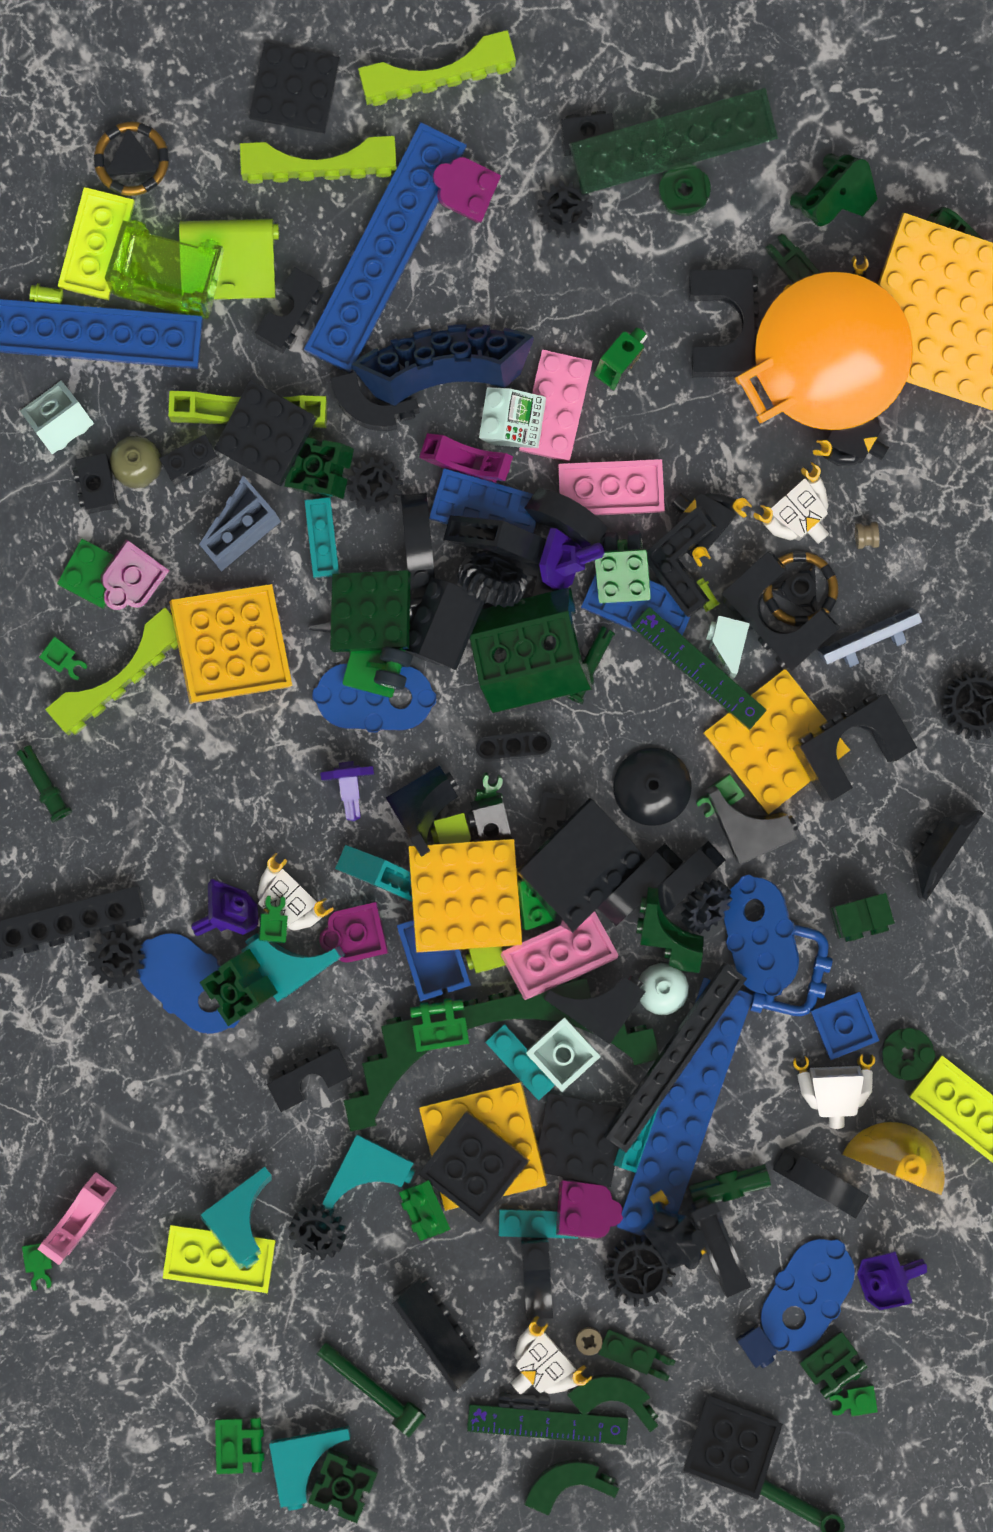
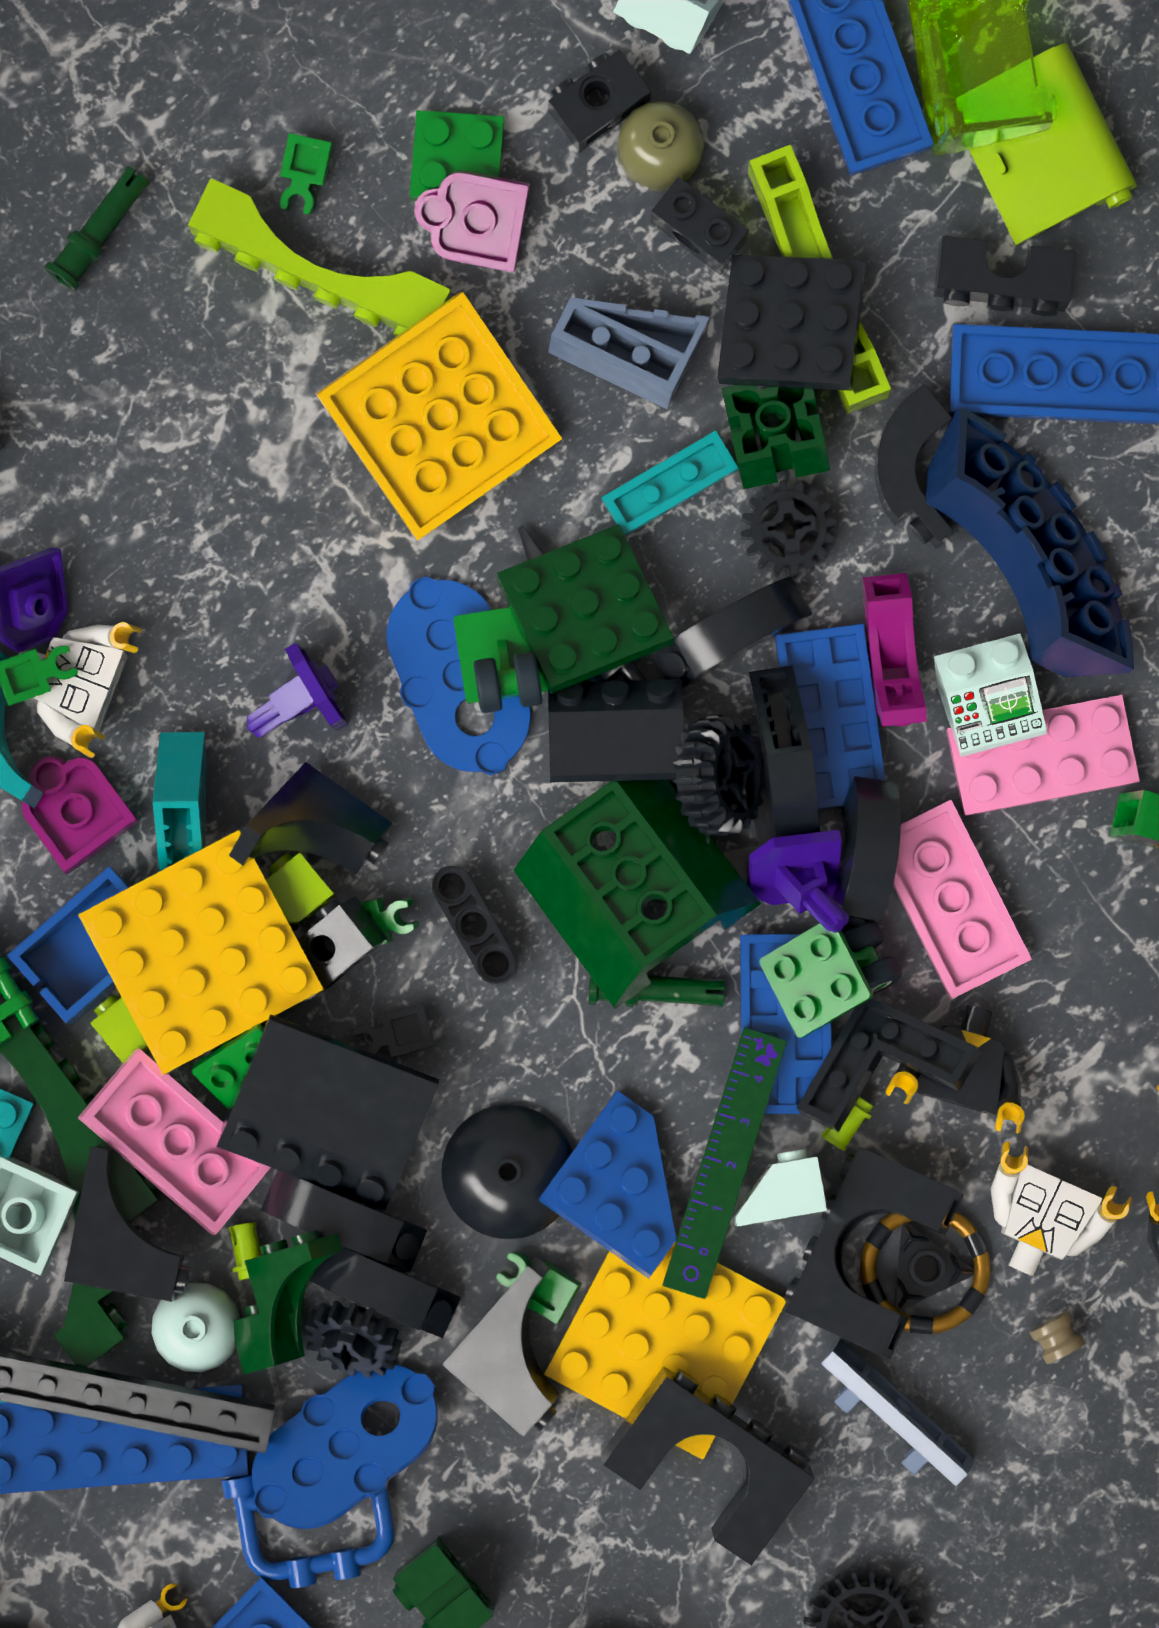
camera: 70 degrees right, 0 degrees up
(632, 943) = (245, 1246): none -> lime pin
(686, 730) = (618, 1187): none -> blue plate

